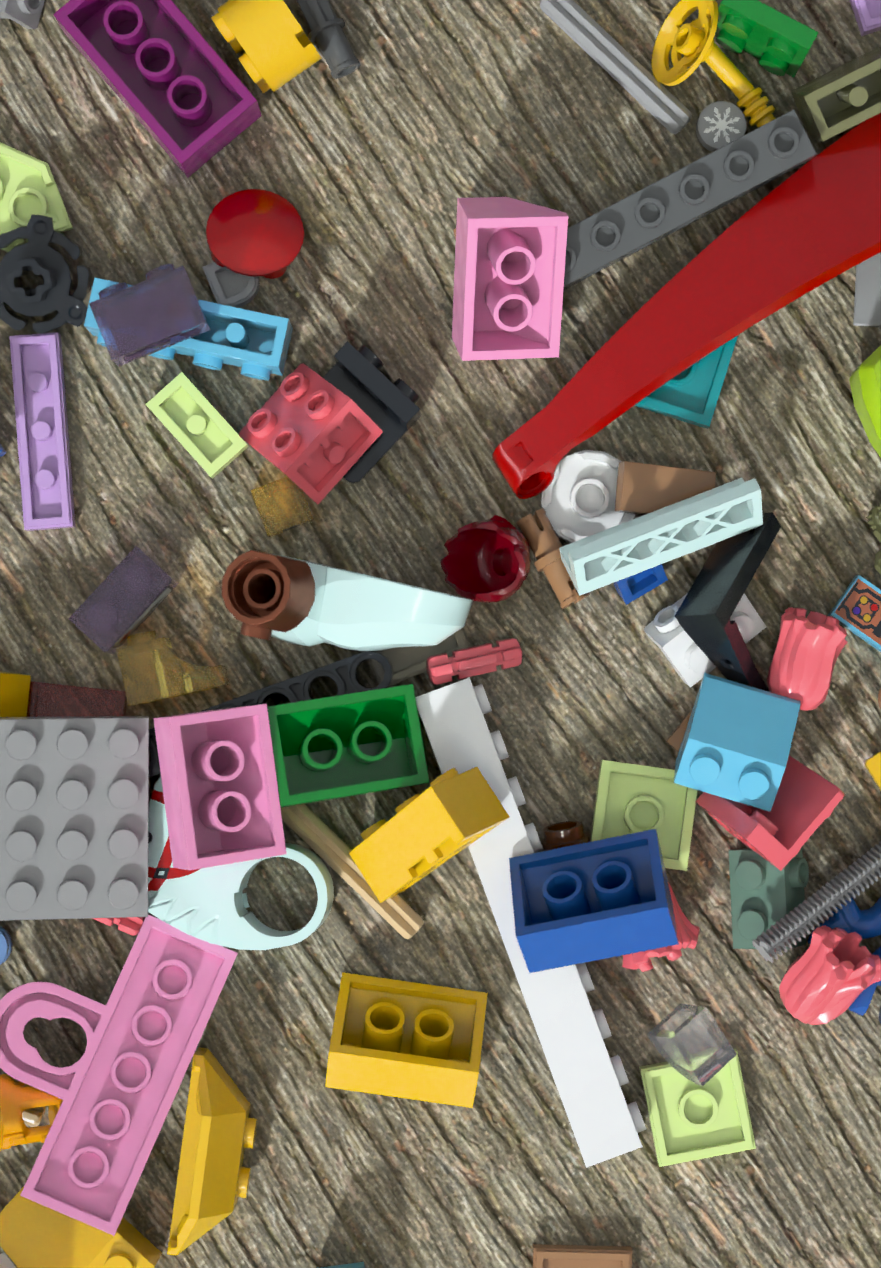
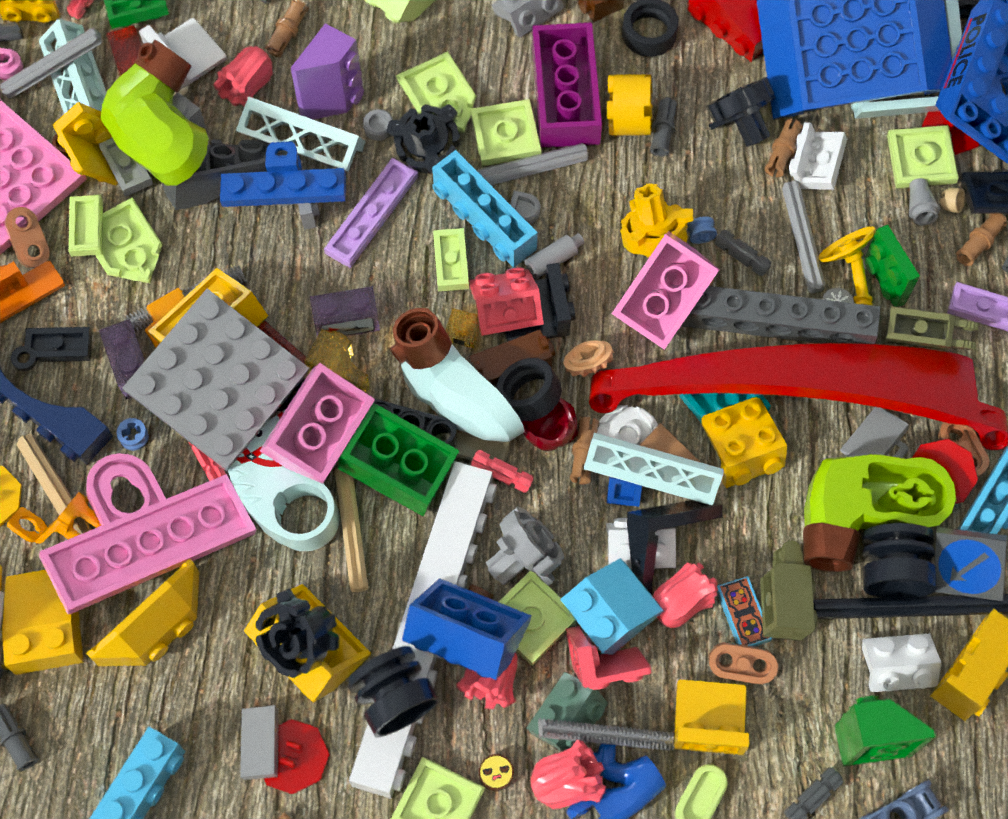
camera: 35 degrees right, 20 degrees down
(128, 190) = (505, 132): none -> yellowish green plate
(149, 314) = (468, 179): clear purple brick -> none
(199, 207) = (535, 164): none -> light grey axle
(255, 233) = (552, 191): red dish -> none
(321, 321) = (557, 252): none -> light grey cylinder
(380, 508) = (496, 360): none -> reddish brown brick
(403, 542) = (523, 372): none -> black tyre
(407, 1062) = (299, 631): none -> black piece
(418, 188) = (651, 220): none -> yellow piece
(427, 831) = (406, 529): yellow wedge -> none
(444, 1193) = (259, 742): none -> light grey tile
(463, 421) = (588, 357): none -> light nougat gear
(483, 148) = (702, 230): none -> medium blue bush
(490, 1176) = (300, 757): none -> red piece
(555, 140) = (743, 252): none -> dark grey axle
(570, 1045) = (390, 686): none -> black wheel
(581, 741) = (525, 545): none -> light grey piece
(692, 1043) = (462, 760): clear brick -> none
(738, 1021) = (496, 772): none -> light yellow tile
(739, 405) = (745, 441): none -> yellow bracket

